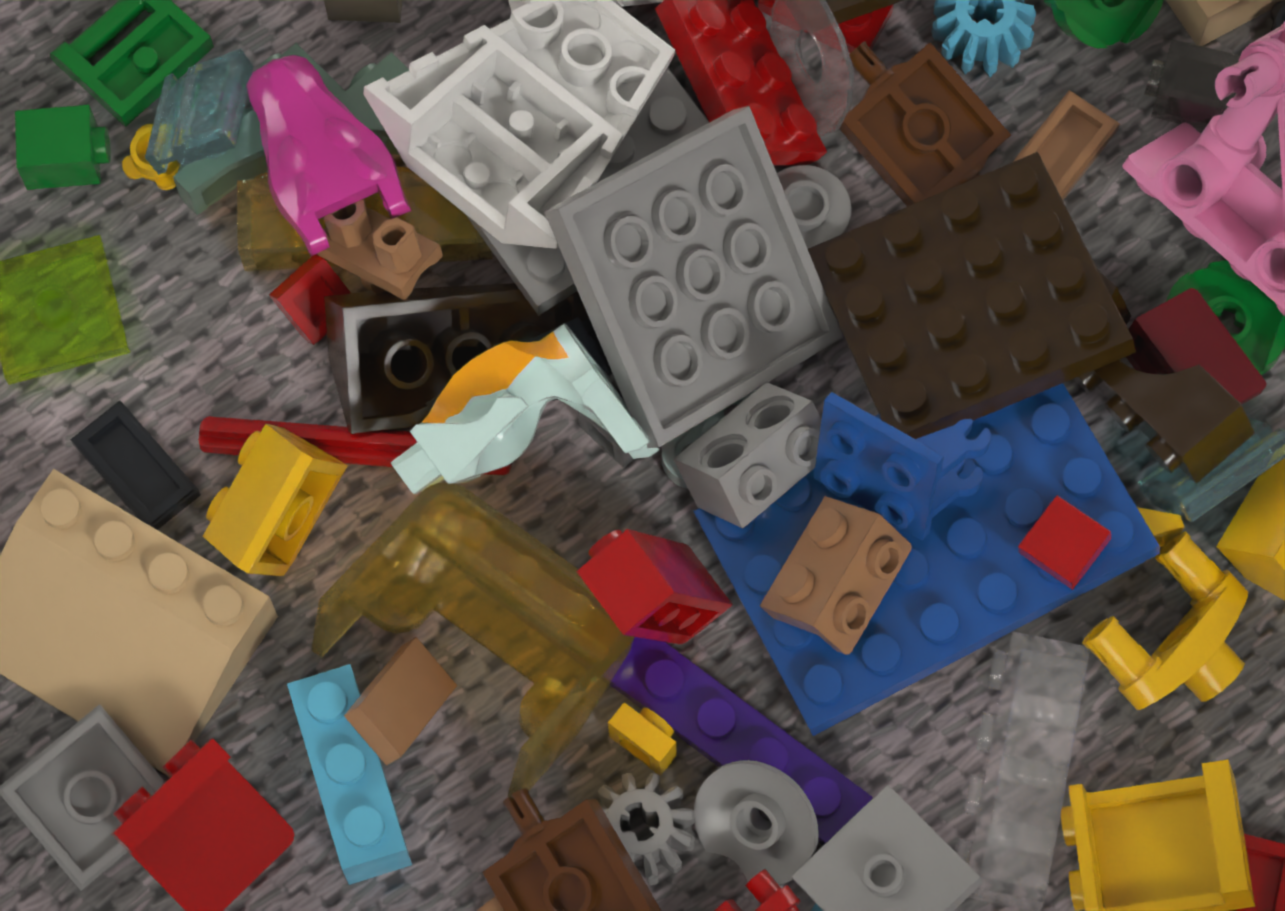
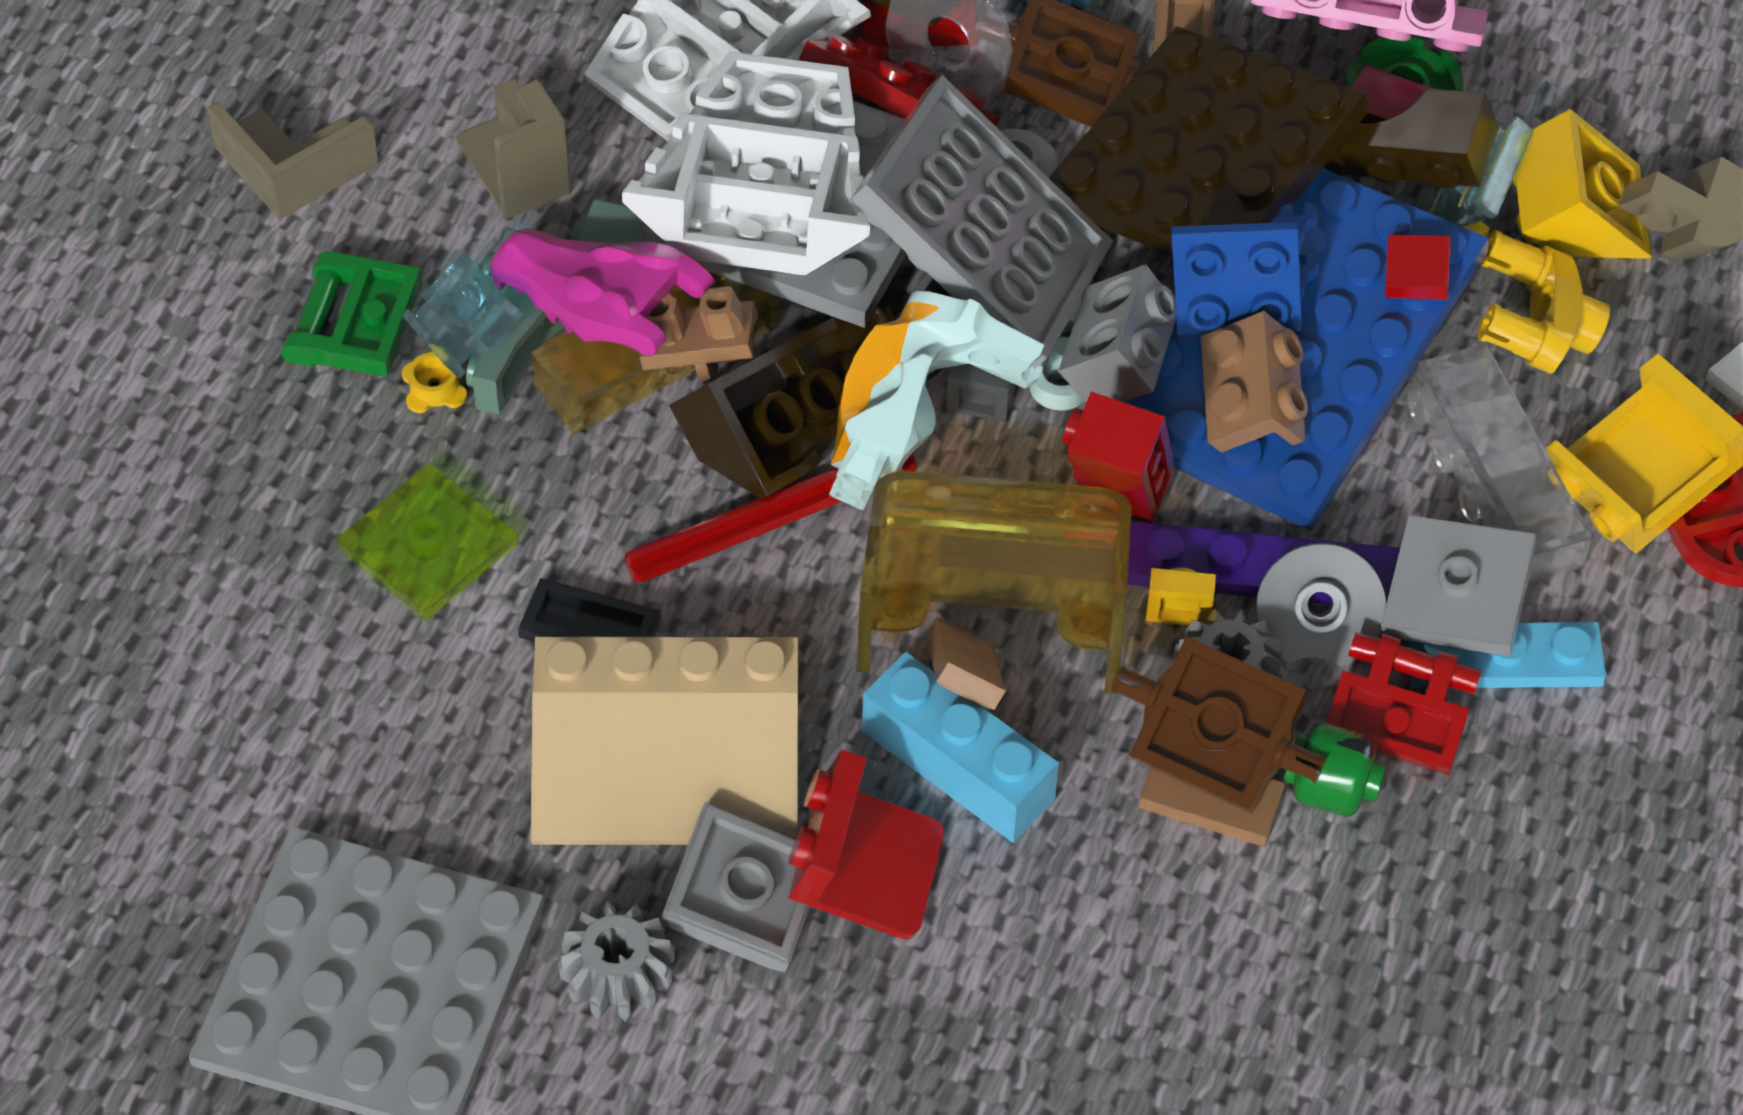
camera: 35 degrees left, 15 degrees down
(60, 147) = (345, 411): green brick -> none
(272, 501) = (739, 565): yellow slope -> none
(303, 297) = (650, 420): red plate -> none

